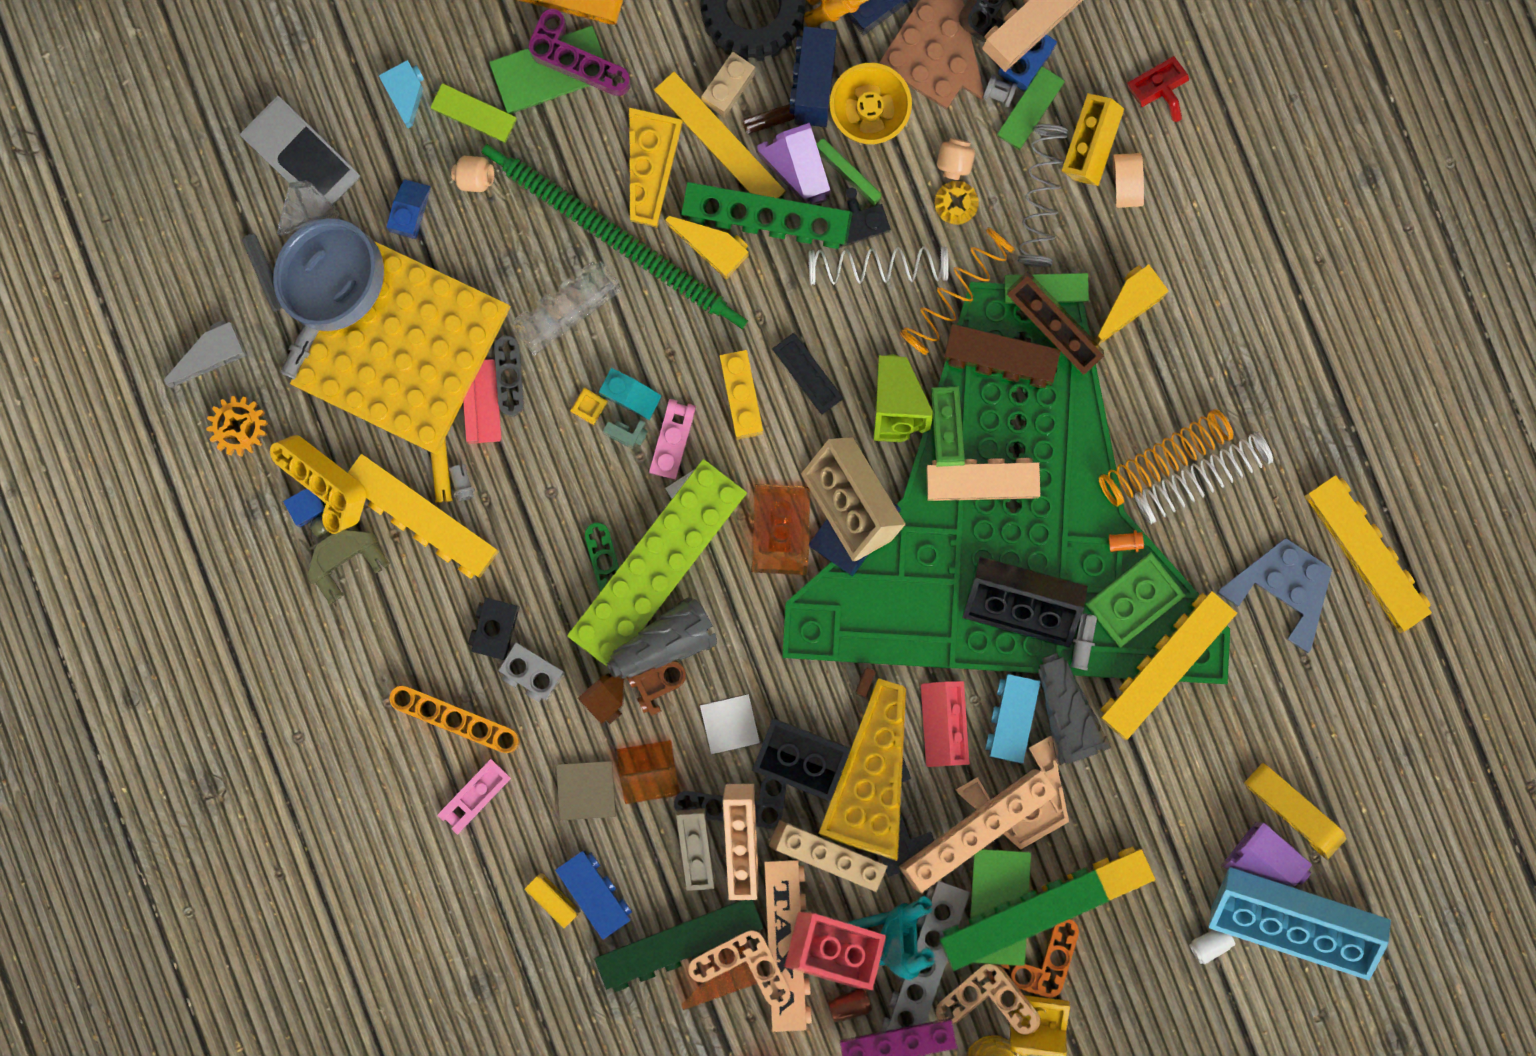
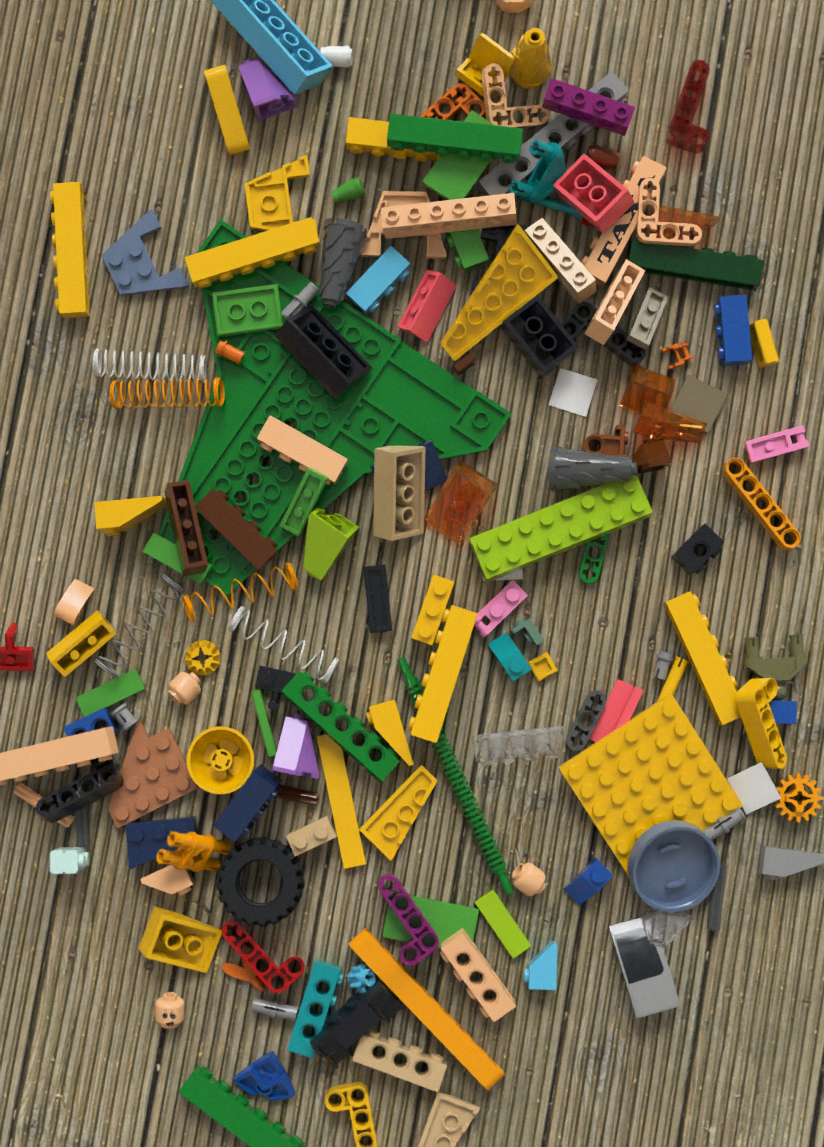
camera: 150 degrees left, 0 degrees up
(289, 408) = (754, 788): none -> white sticker
(504, 66) = (490, 1007): none -> light nougat brick
(534, 666) = (684, 507): light grey brick -> none
(608, 744) = (668, 425): none -> clear orange slope
(632, 826) = (675, 347): none -> orange piece
(689, 331) = (443, 673): none -> yellow brick
(935, 811) = (468, 249): none -> bright green brick
(1105, 802) = (349, 190): none -> bright green cone
(1186, 739) = (269, 196): none -> yellow wing

